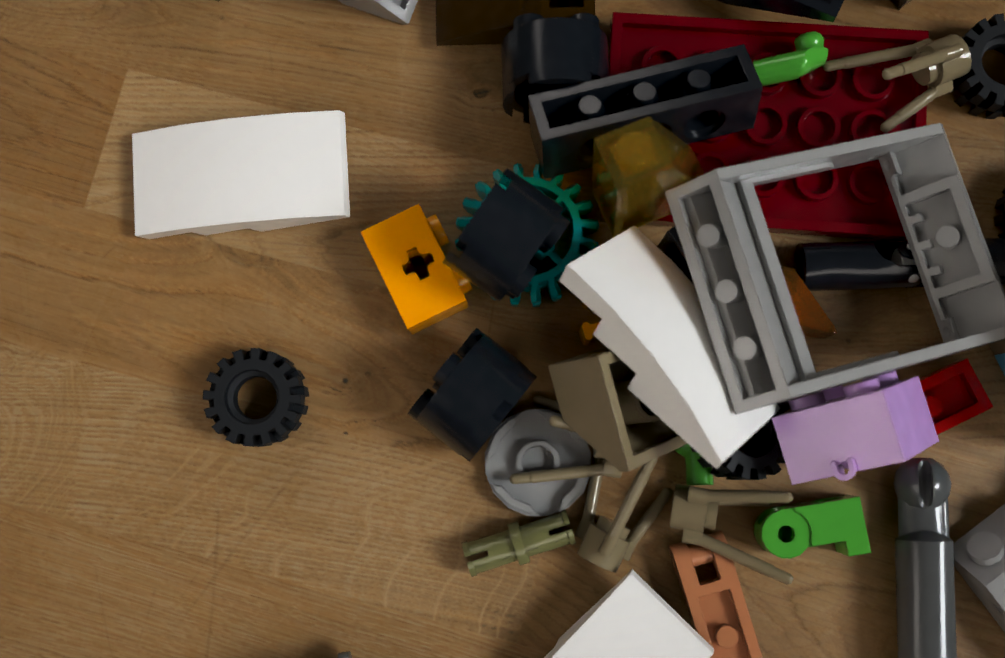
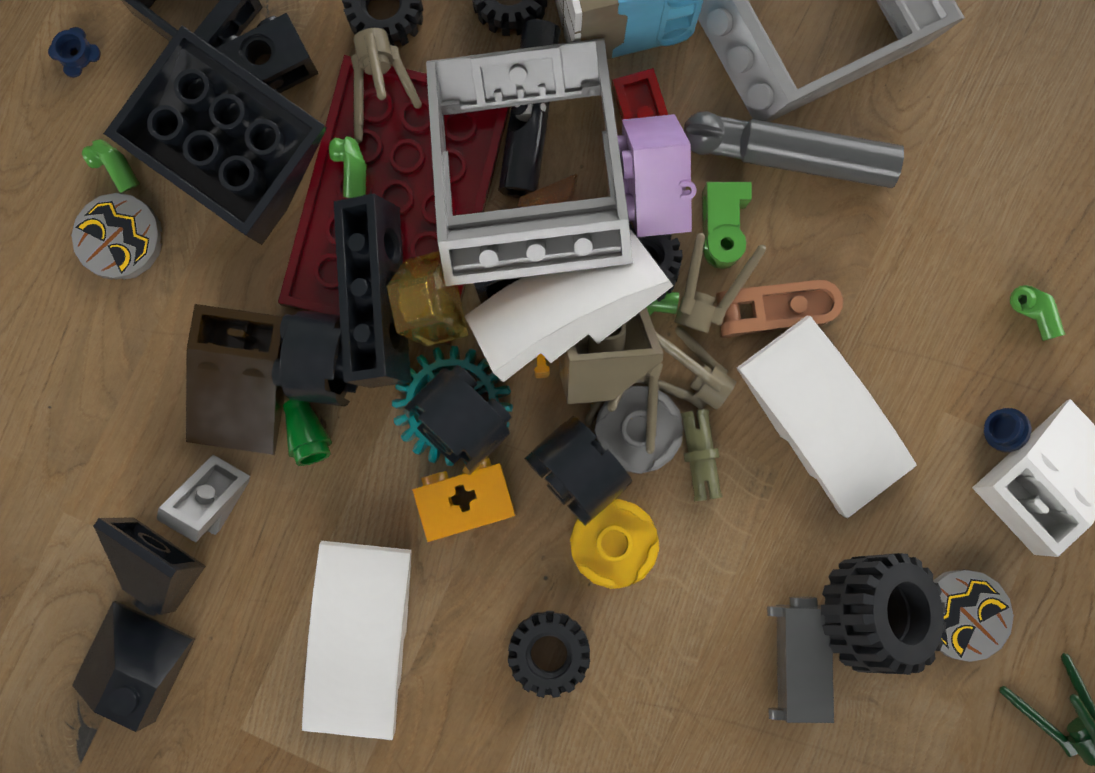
camera: 85 degrees left, 0 degrees up
(394, 457) = (616, 545): none -> yellow tile
(465, 74) = (305, 434): none -> green cone

